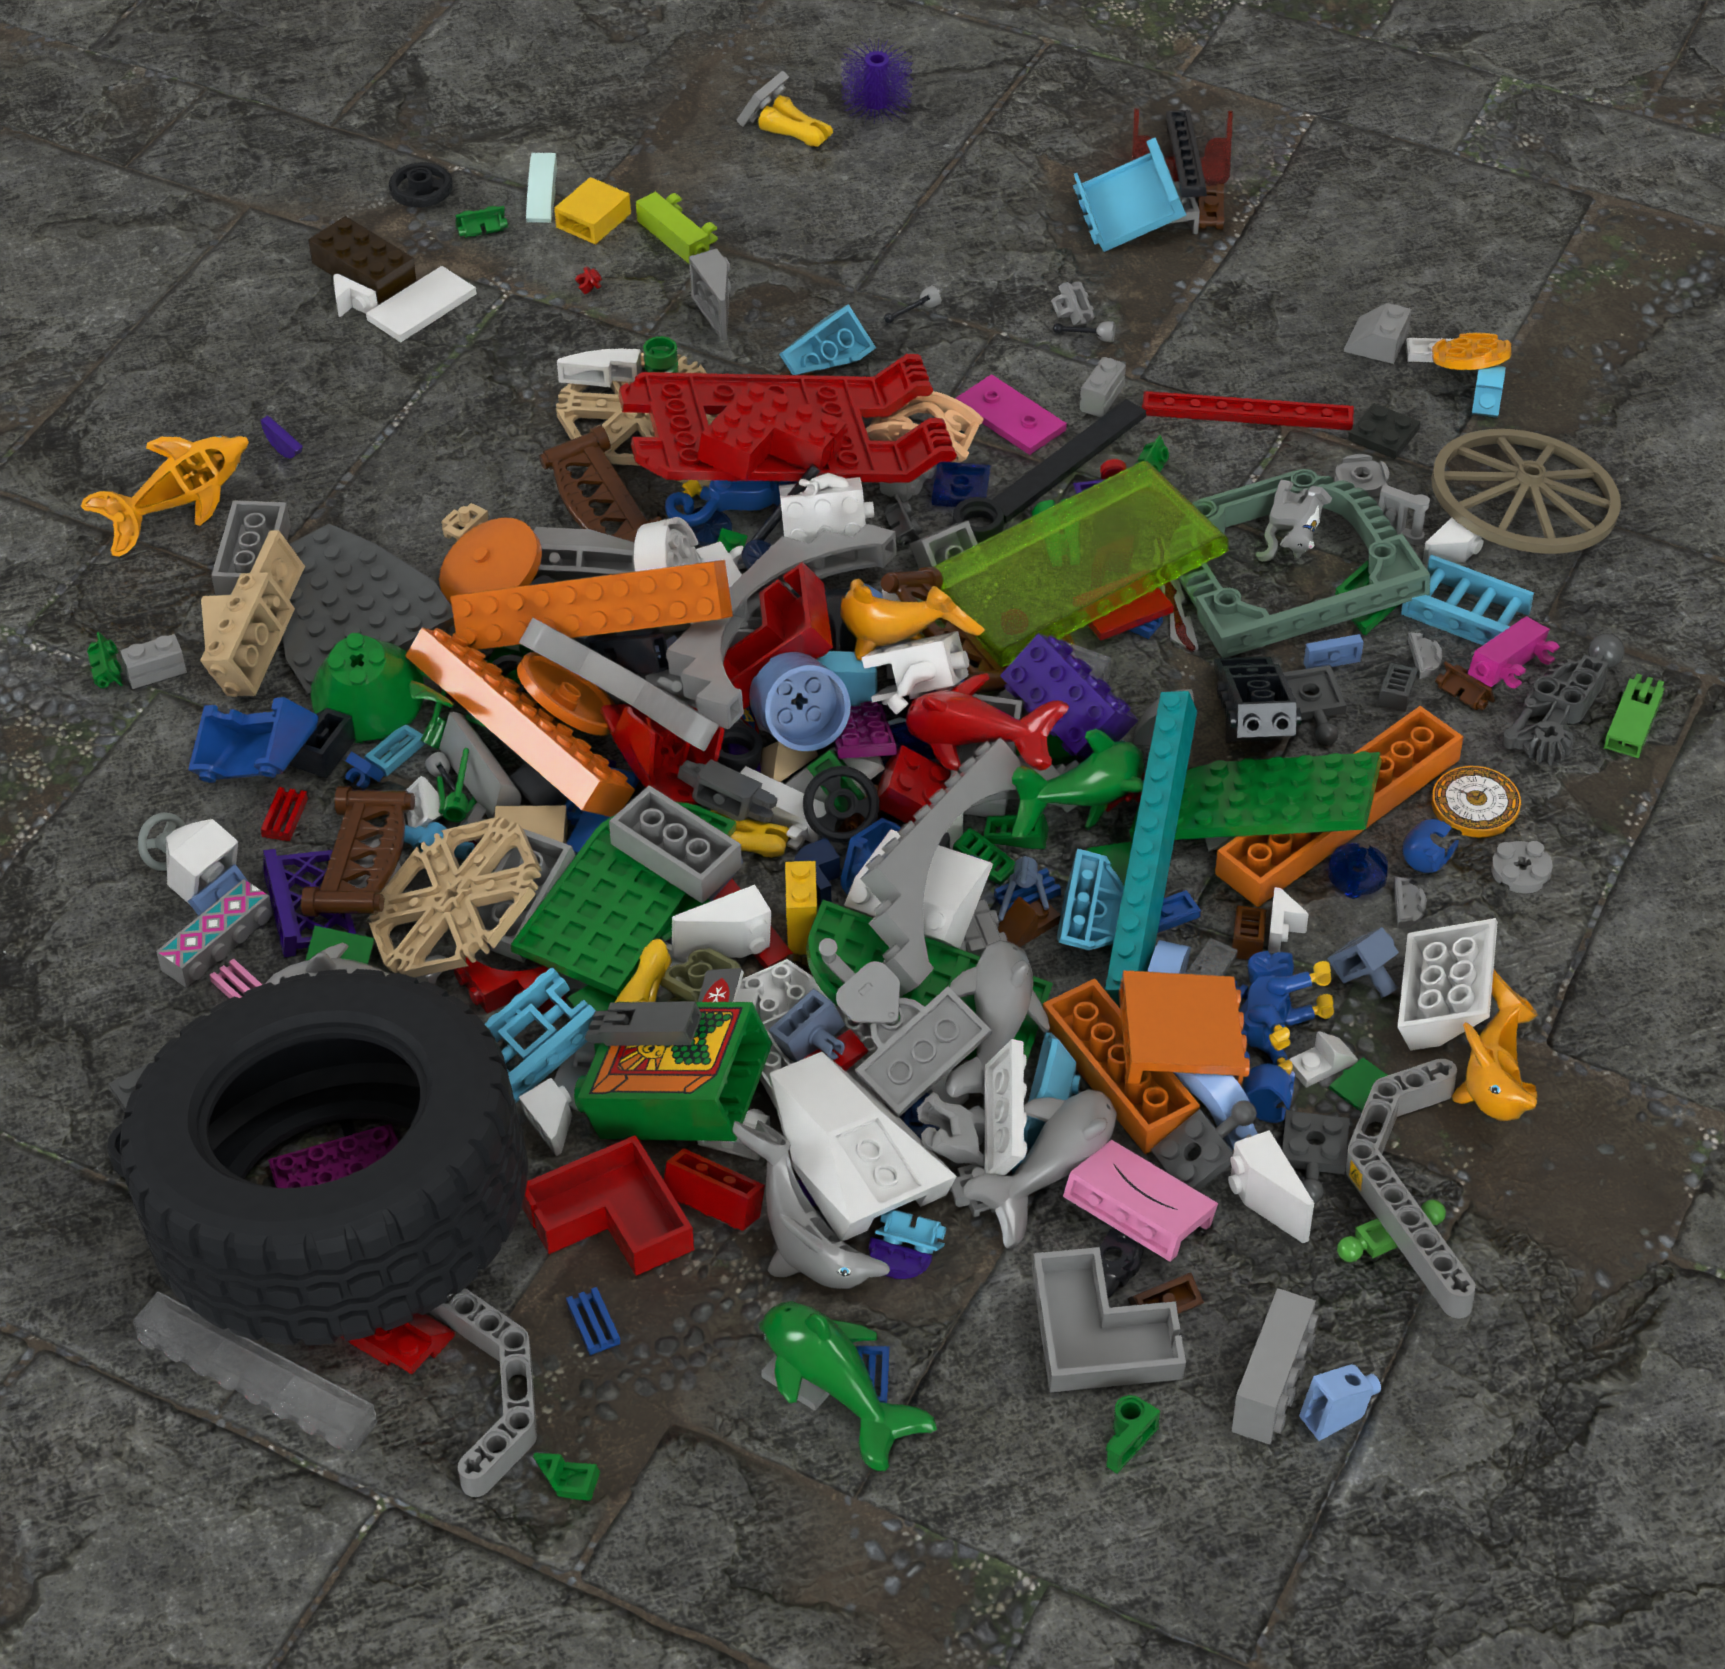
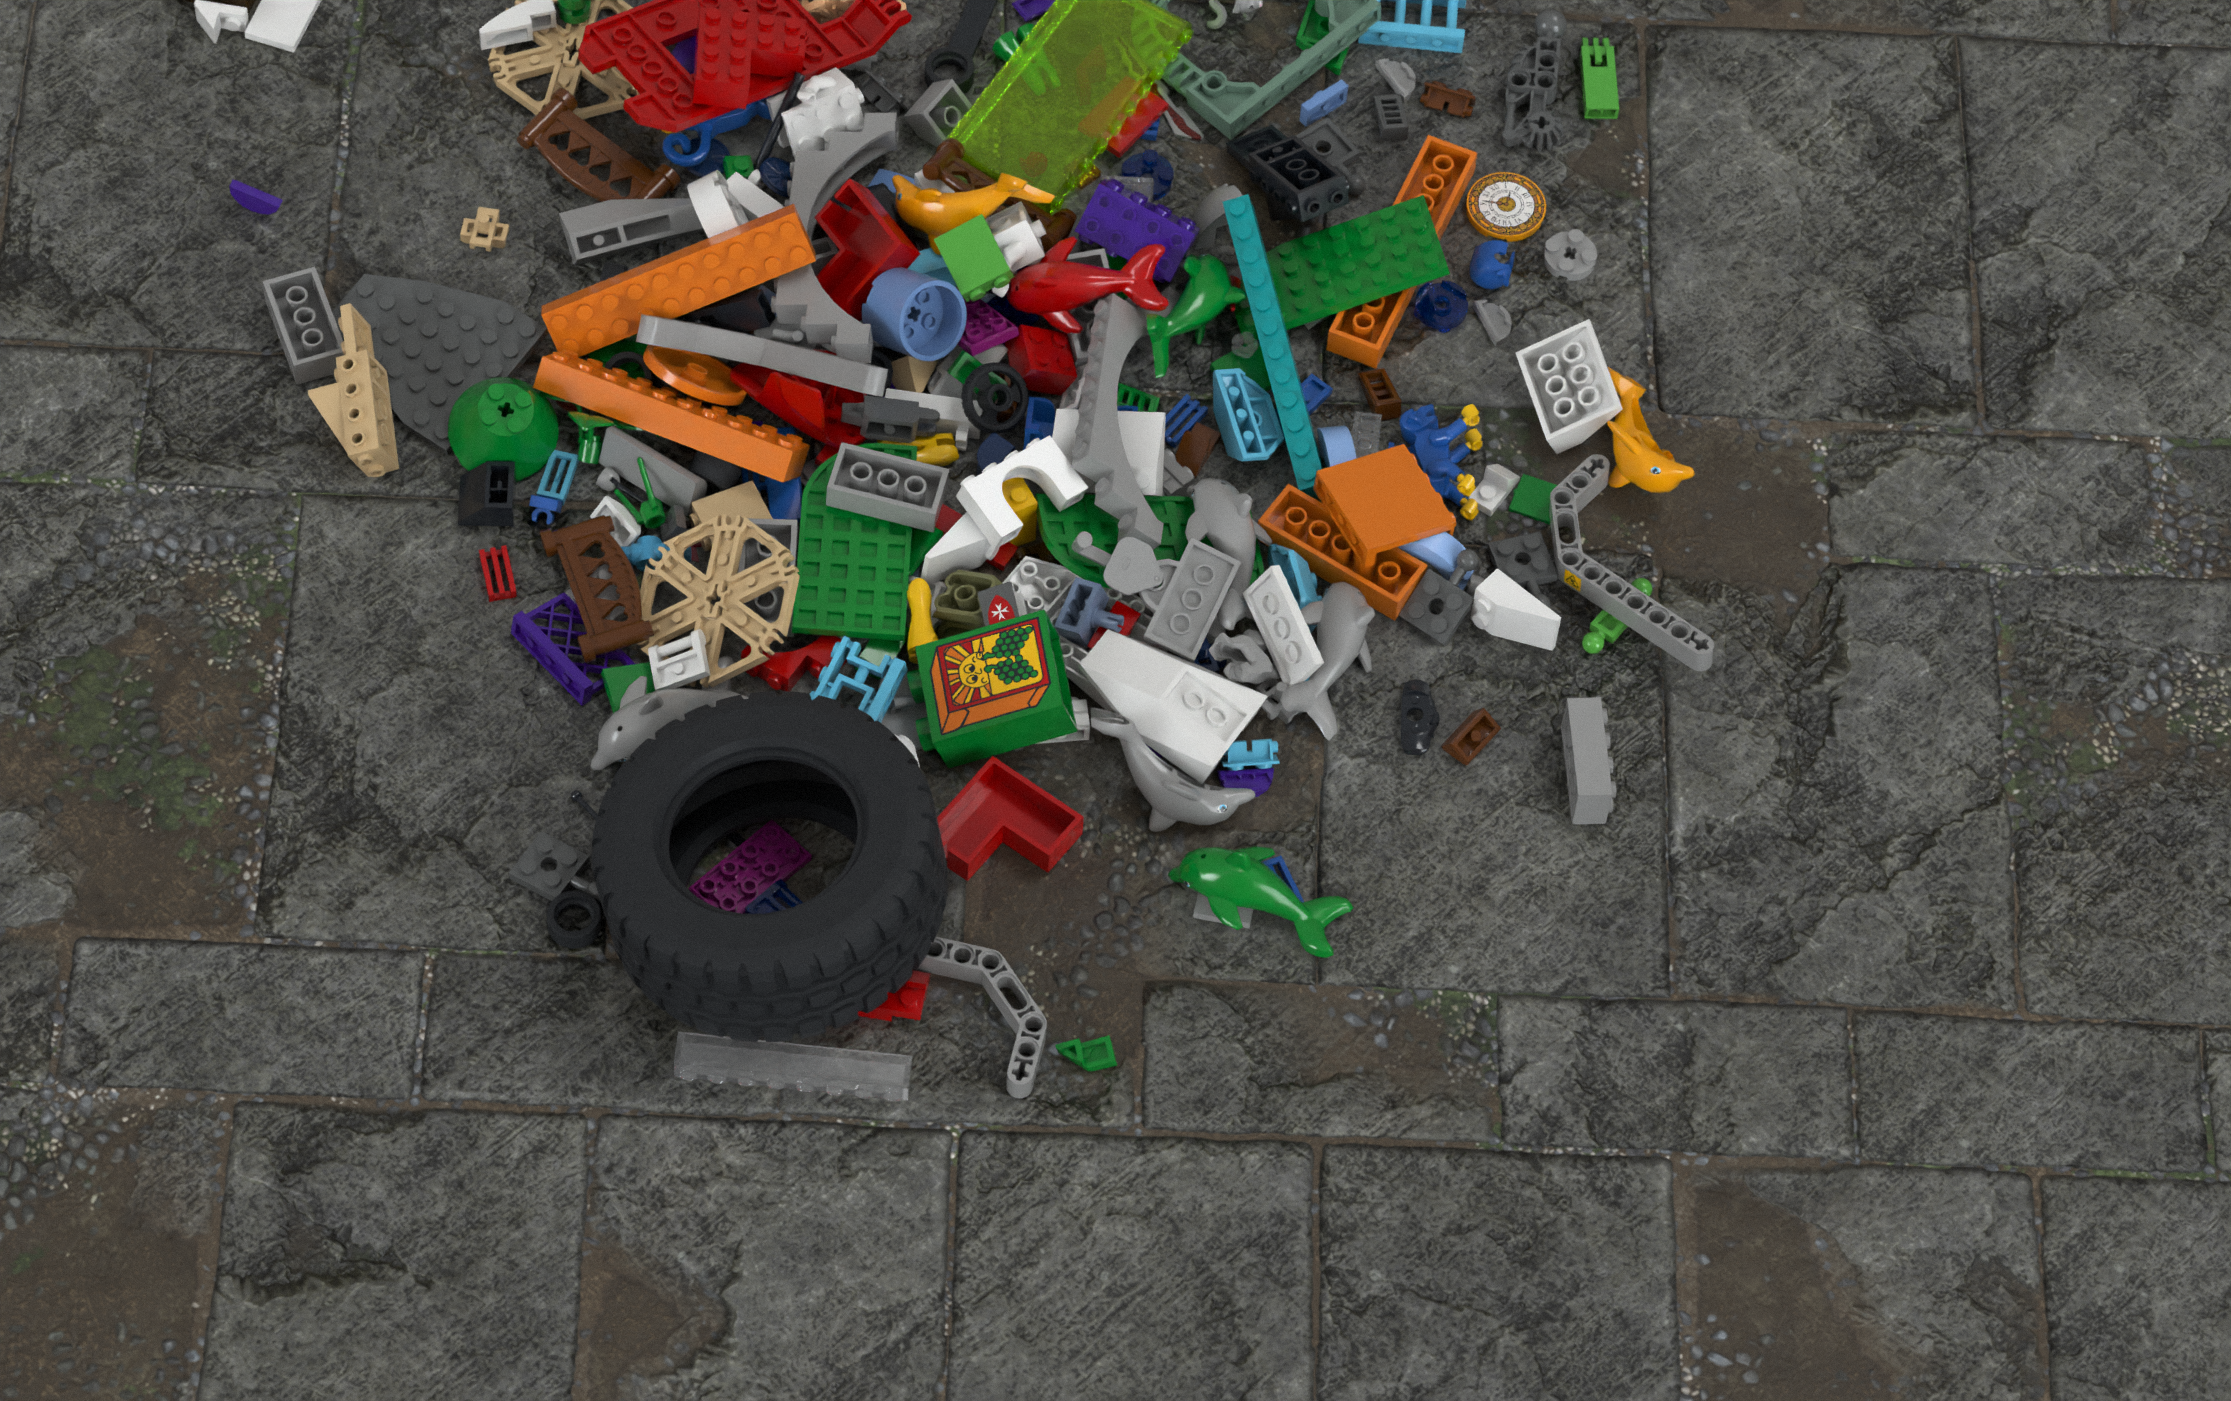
camera: 30 degrees left, 10 degrees up
(104, 662) = (229, 475): green hinge -> none
(153, 661) = (285, 468): light grey brick -> none
(188, 475) = (201, 267): light orange animal -> none
(193, 852) = (454, 642): white piece -> none
(215, 933) = (513, 706): light grey brick -> none
(216, 889) = (494, 669): medium blue plate -> none
(227, 972) = (565, 741): bright pink tile -> none
(250, 743) = (439, 518): blue windscreen -> none
(388, 941) = (682, 667): none -> white plate
(491, 558) = (540, 263): orange dish -> none
(585, 1300) = (1026, 902): blue tile -> none
(645, 1024) = (966, 657): dark grey hinge -> none
(714, 1189) = (1077, 777): red brick -> none
(832, 865) = (1040, 463): none -> white arch
(877, 664) = (974, 258): none -> bright green panel
(959, 482) = (915, 40): clear blue plate -> none
(1025, 876) = (1179, 408): sand blue plant -> none
(1035, 840) = (1143, 375): green slope -> none
(1095, 1344) = (1437, 792): light grey piece -> none
(1119, 839) = (1241, 351): none -> clear plate
(1130, 1433) = (1499, 854): green plate -> none
(1132, 657) = (1153, 164): none -> clear blue plate
(1139, 1199) = (1416, 662): bright pink panel -> none
(1268, 1087) = (1468, 527): blue helmet -> none
(1285, 918) = (1404, 371): white slope -> none
(1337, 1400) = (1651, 759): light blue torso -> none
(1366, 957) = (1491, 386): sand blue brick -> none
(1510, 651) = (1473, 53): dark pink brick -> none

